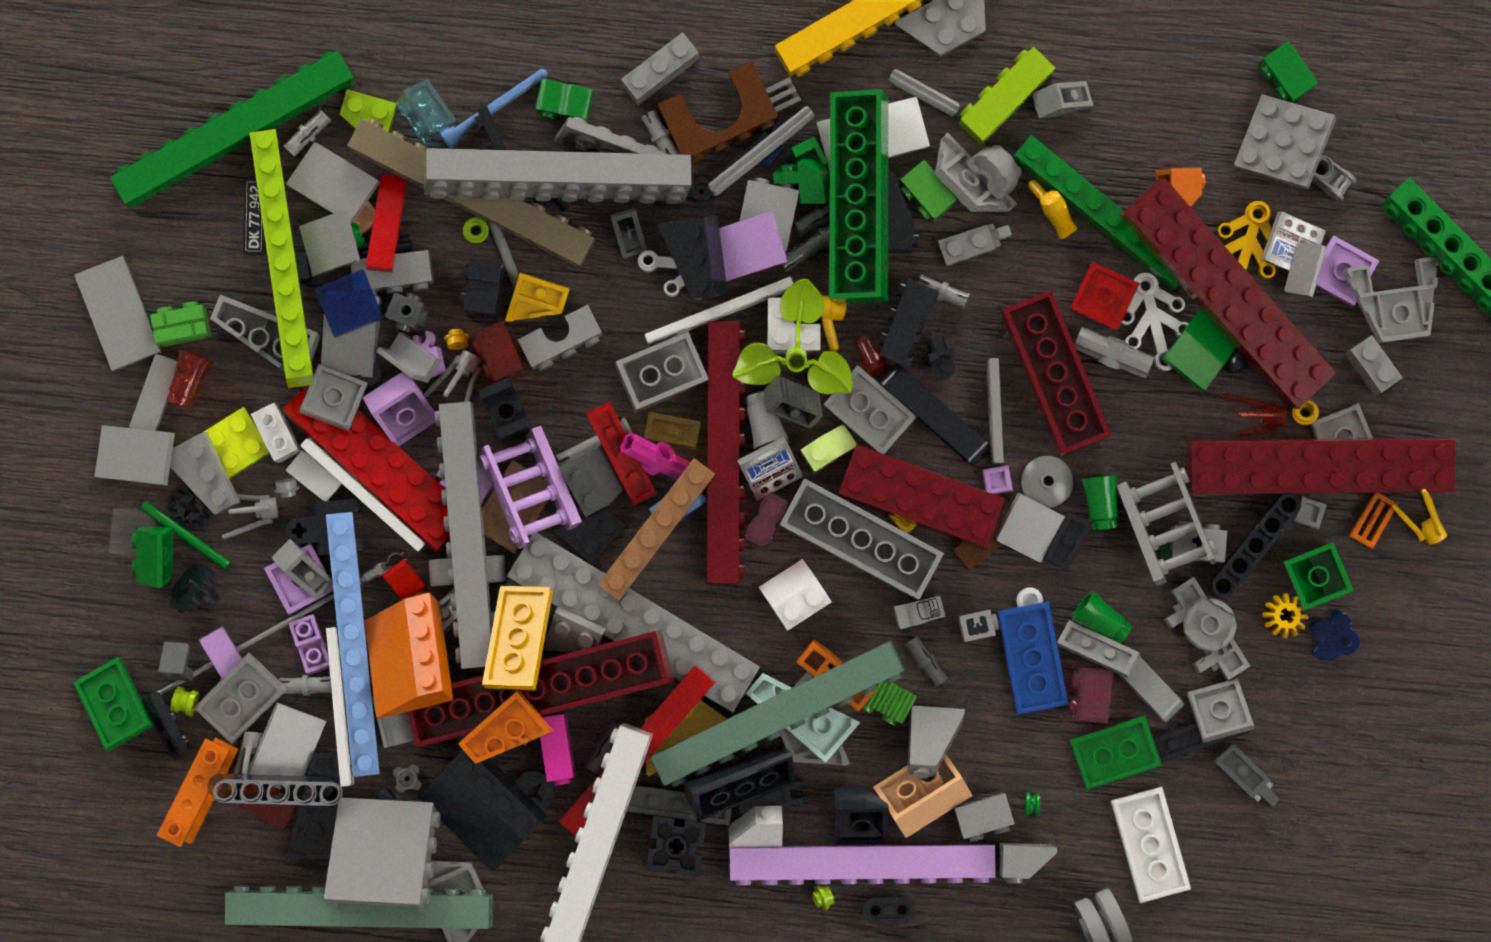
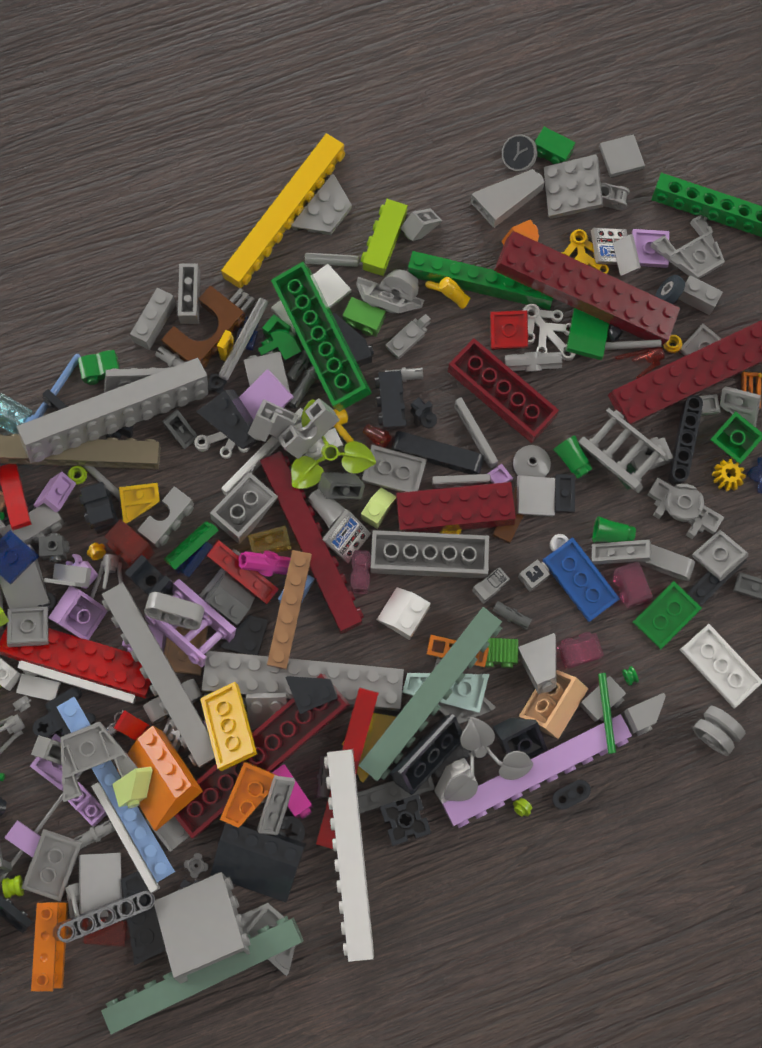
camera: 25 degrees left, 10 degrees down
(340, 585) = (86, 750): none -> light grey wing
(373, 656) = (133, 787): none -> yellowish green slope
(439, 242) = (56, 492): none -> lavender panel
(516, 467) = (174, 610): none -> light grey beam
(530, 759) = (276, 805): none -> light grey tile
(570, 408) = (194, 560): none -> clear blue tile
(574, 389) = (190, 544): none -> green tile
(633, 647) = (311, 692): none -> black wing
(720, 57) = (189, 293): none -> light grey brick
(735, 151) = (225, 345): none -> yellow tile
(744, 281) = (271, 420): none -> light grey brick
(767, 324) = (300, 440): none -> light grey arch
(804, 798) = (476, 738): none -> light grey plant
(945, 464) = (459, 480): none -> light grey tile
(978, 837) = (607, 713): none -> green bar
(987, 745) = (580, 650): none -> clear pink brick
(1192, 114) = (507, 196): none -> light grey slope
(1238, 61) = (519, 152): none -> black tile
(1253, 390) = (632, 344): none -> light grey bar
(1337, 342) = (671, 289): none -> black bush
(1348, 534) = (742, 402): none -> light grey wing
(1373, 125) = (622, 155): none -> light grey tile

